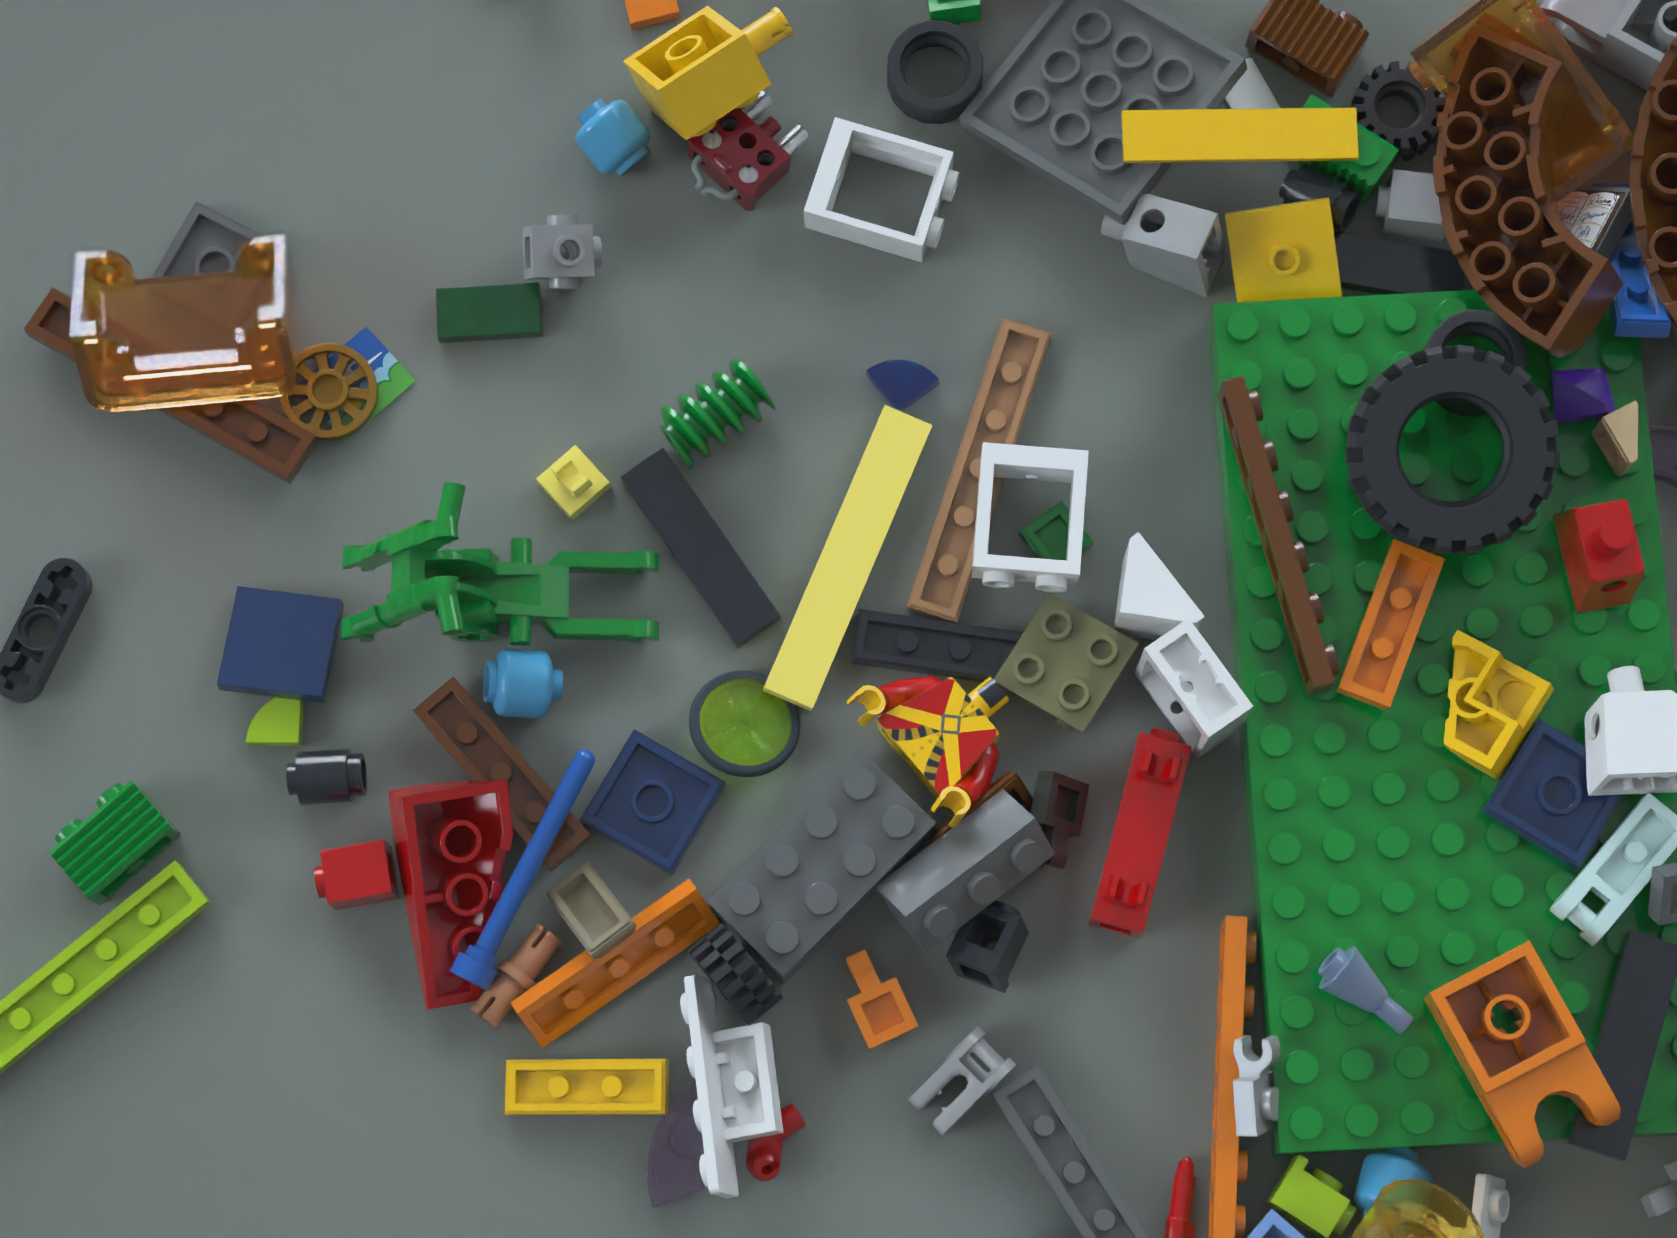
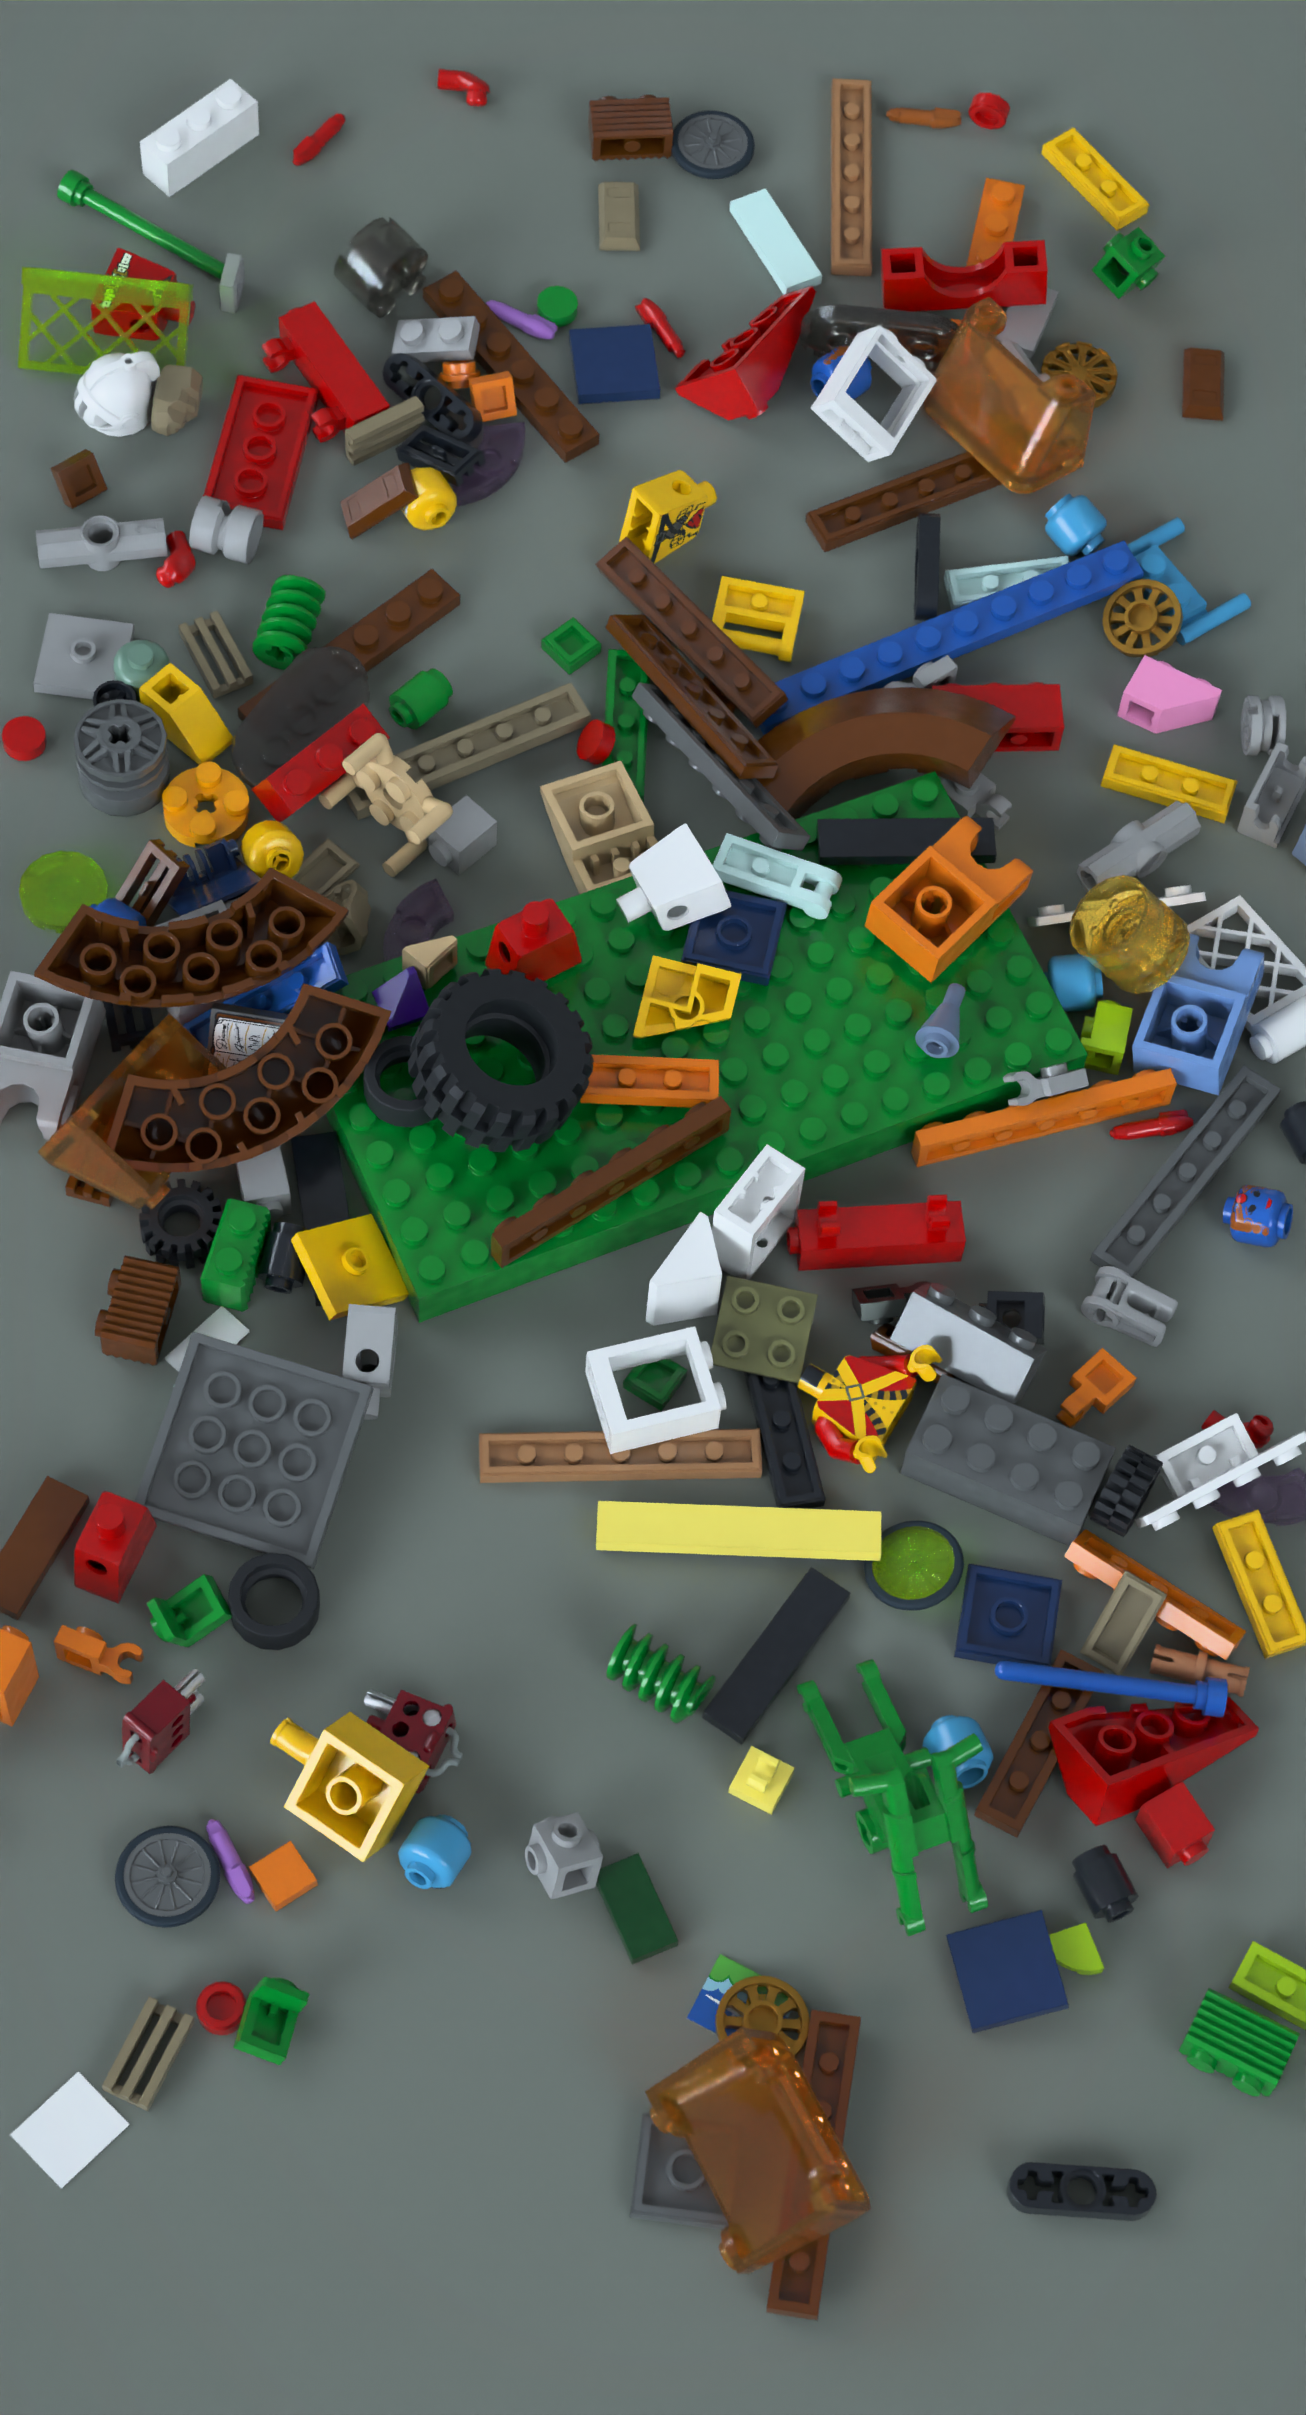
camera: 120 degrees left, 15 degrees down
(891, 149) = (403, 1653): white window -> none
(902, 382) = (568, 1540): clear blue tile -> none
(1239, 135) = (266, 1315): yellow piece -> none

